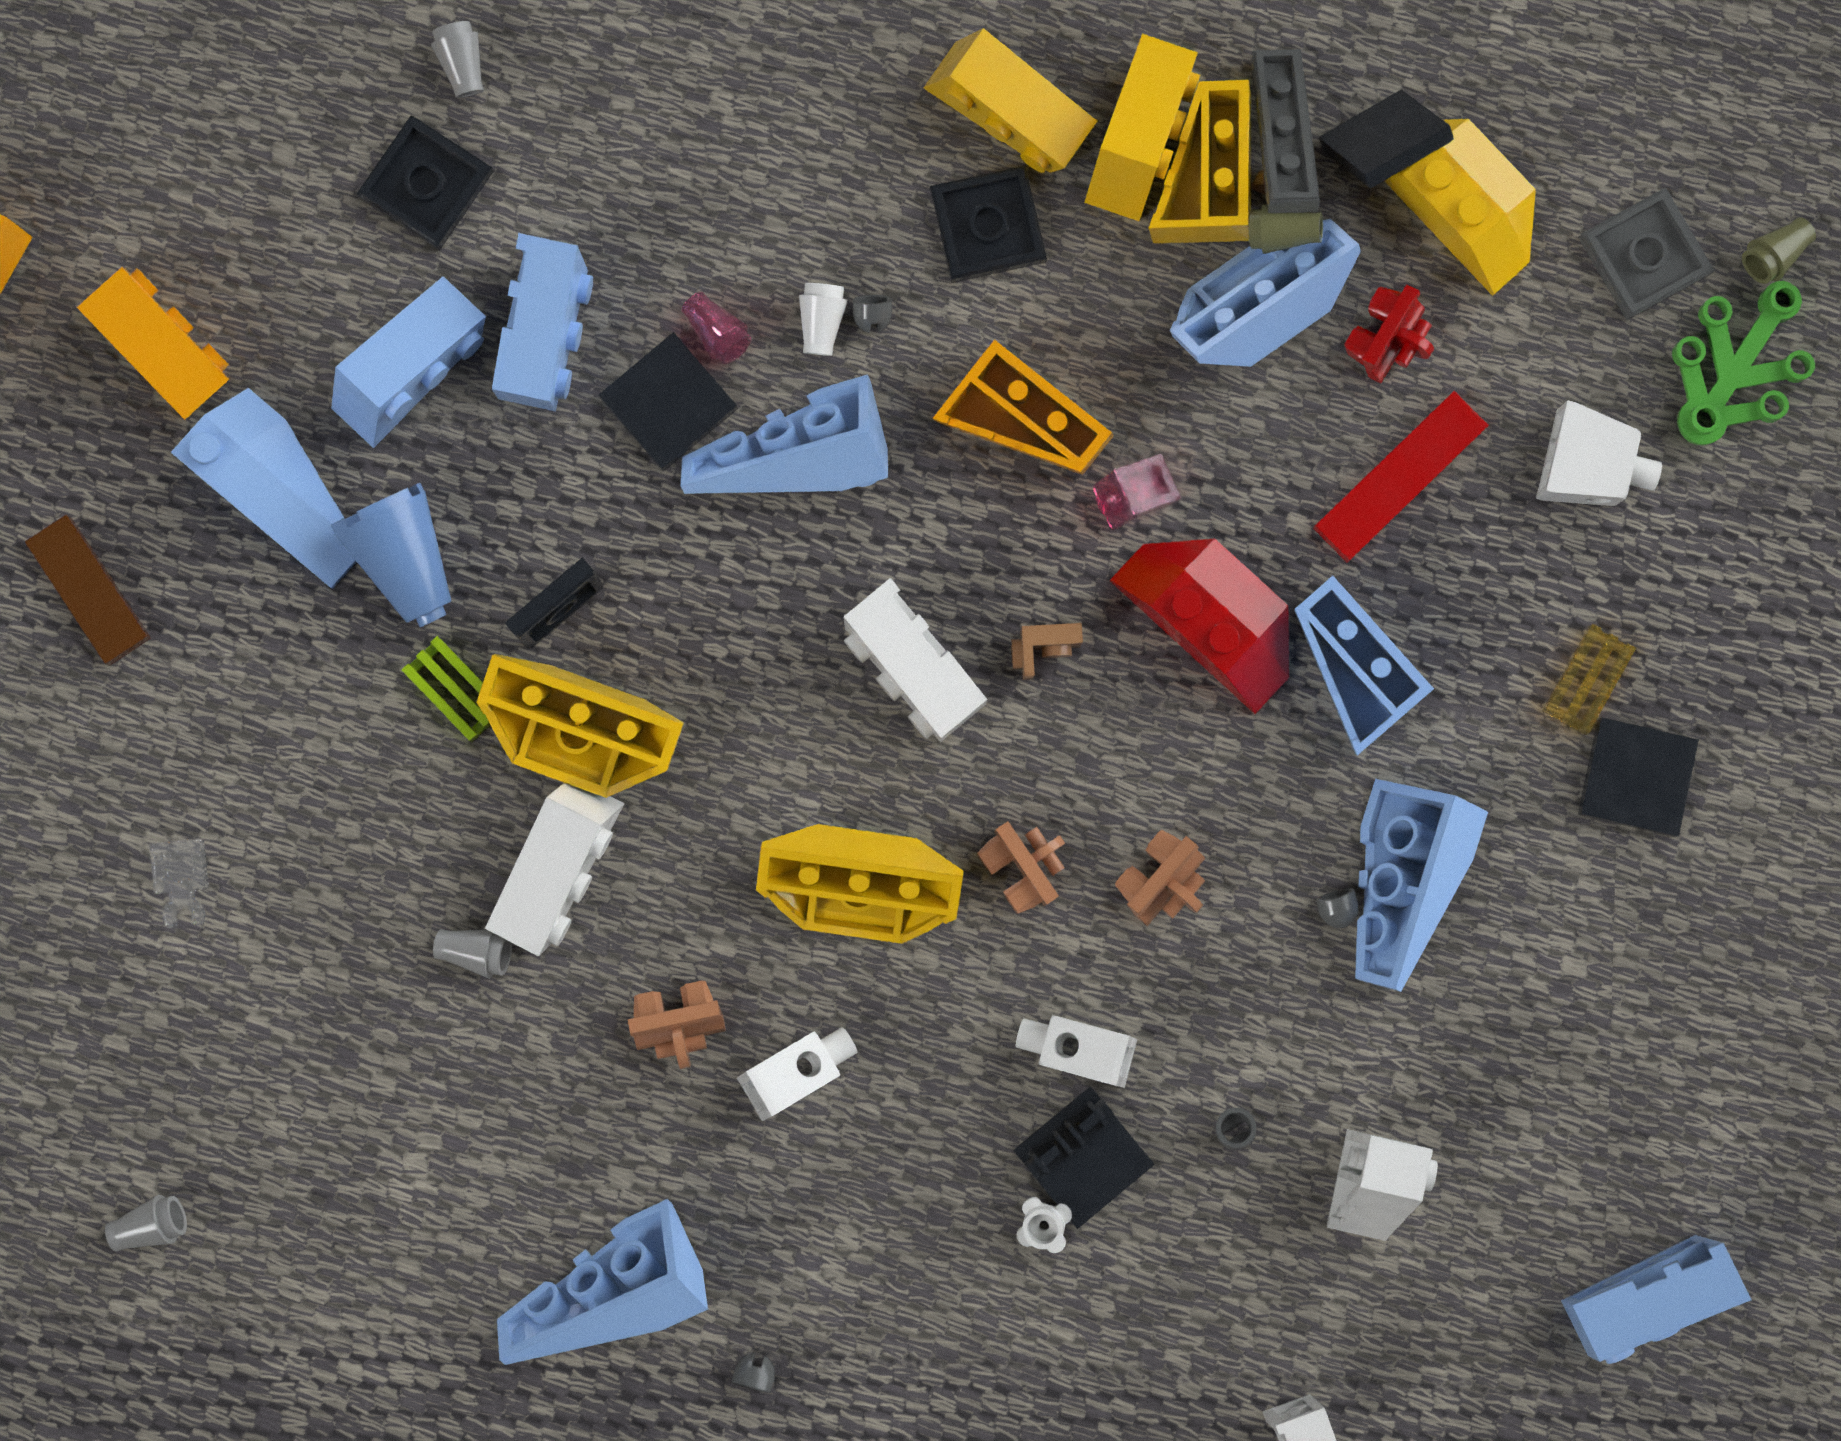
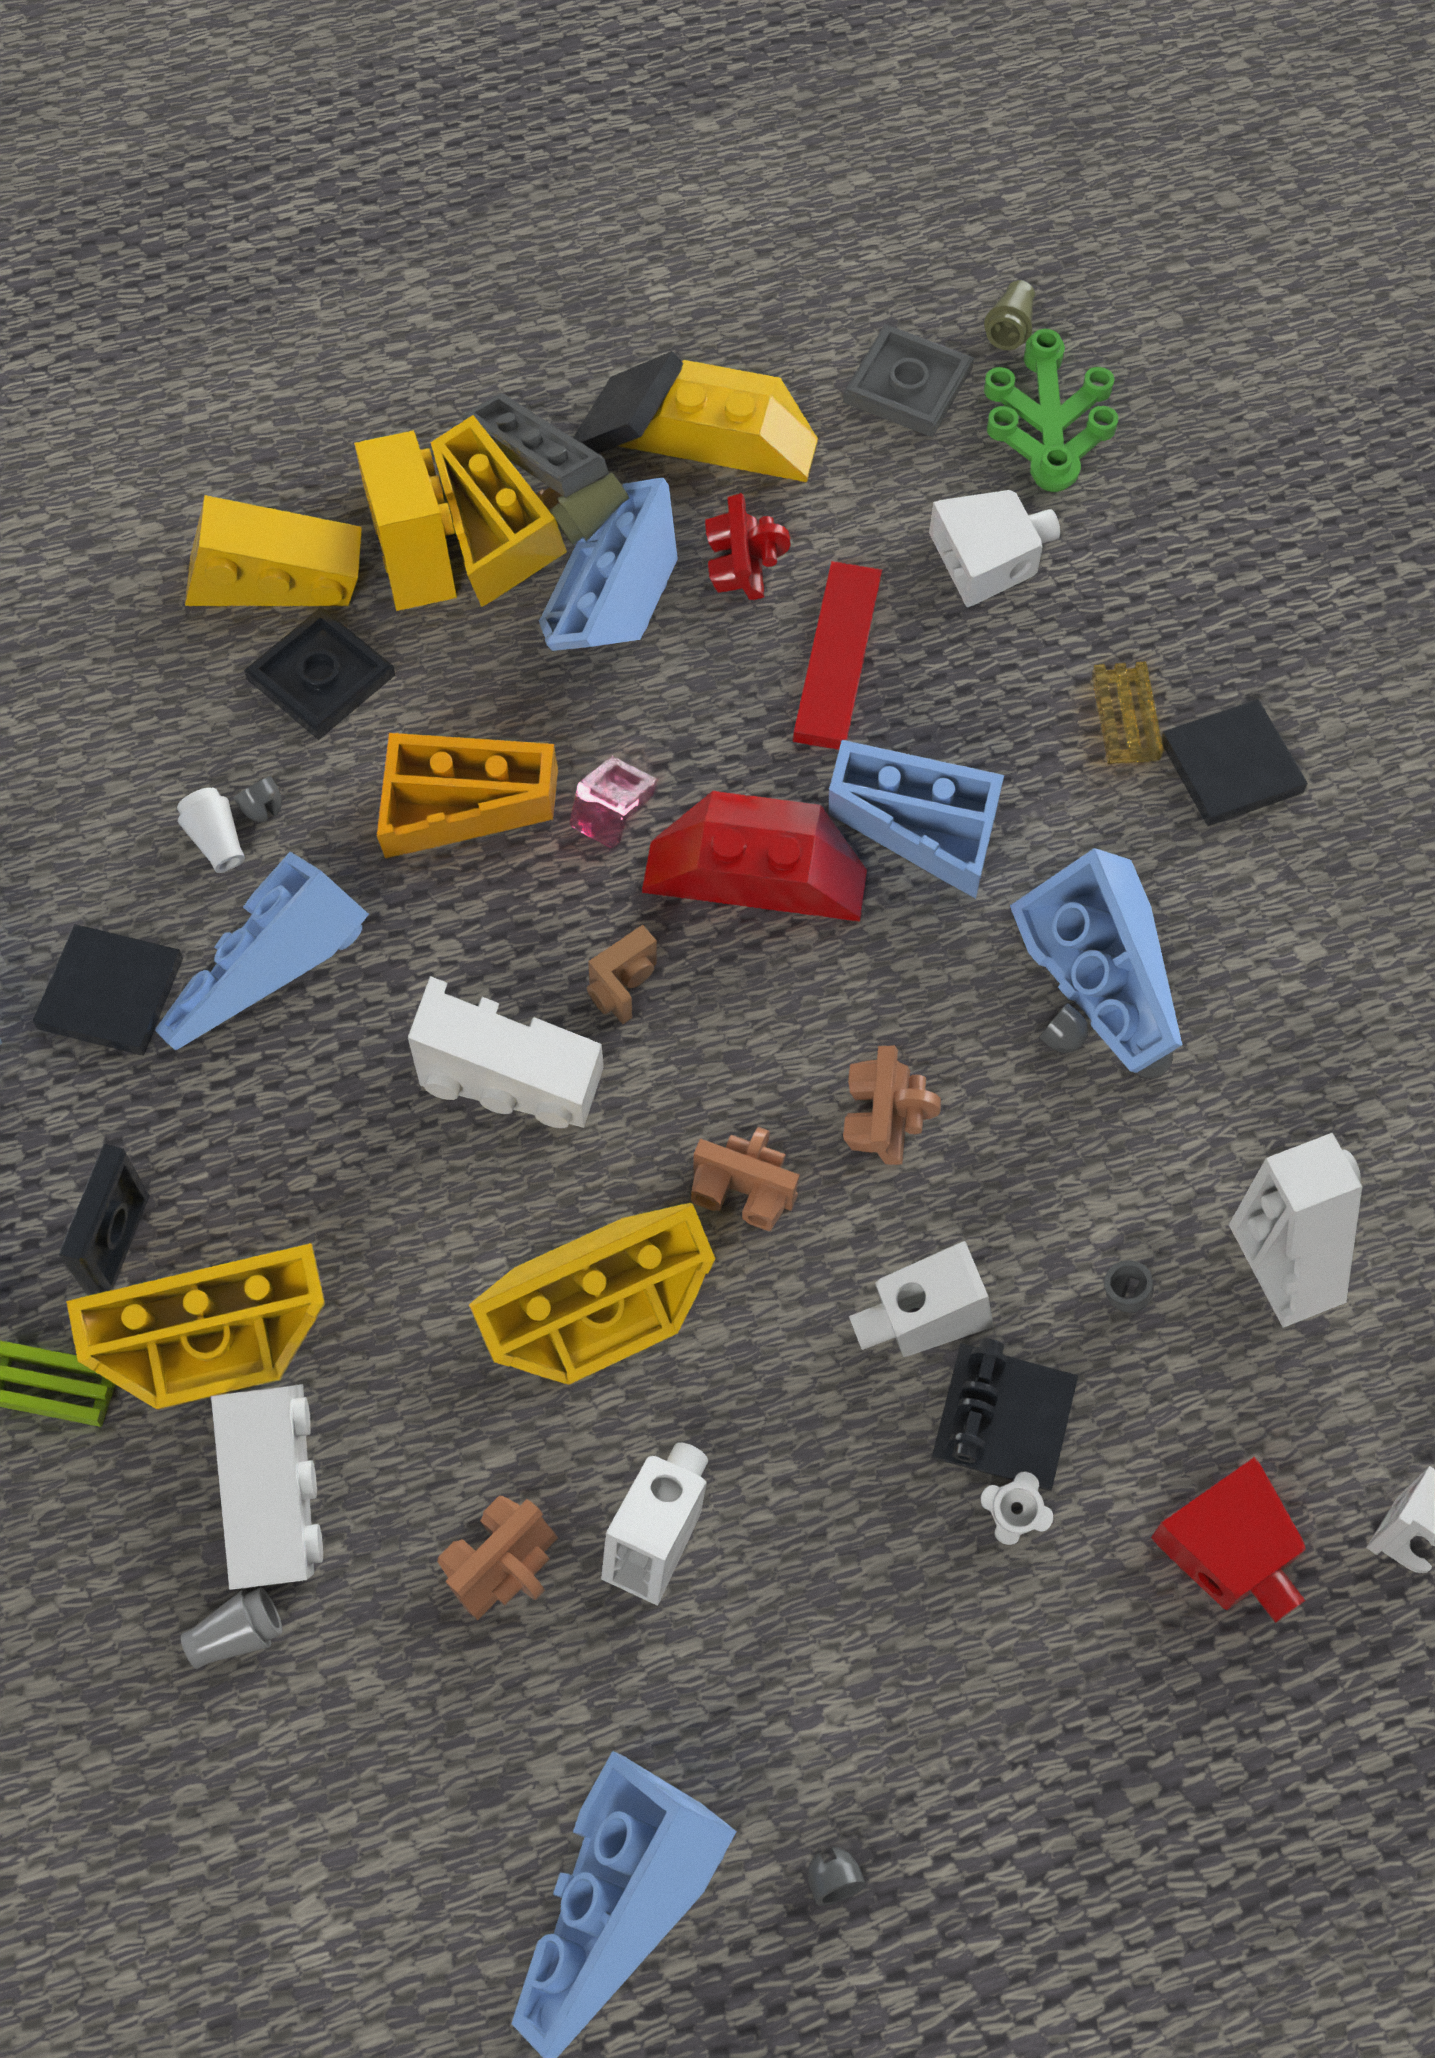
camera: 30 degrees left, 20 degrees down
(717, 329) = (118, 896): clear pink cone -> none
(1173, 1352) = (1237, 1542): none -> red torso

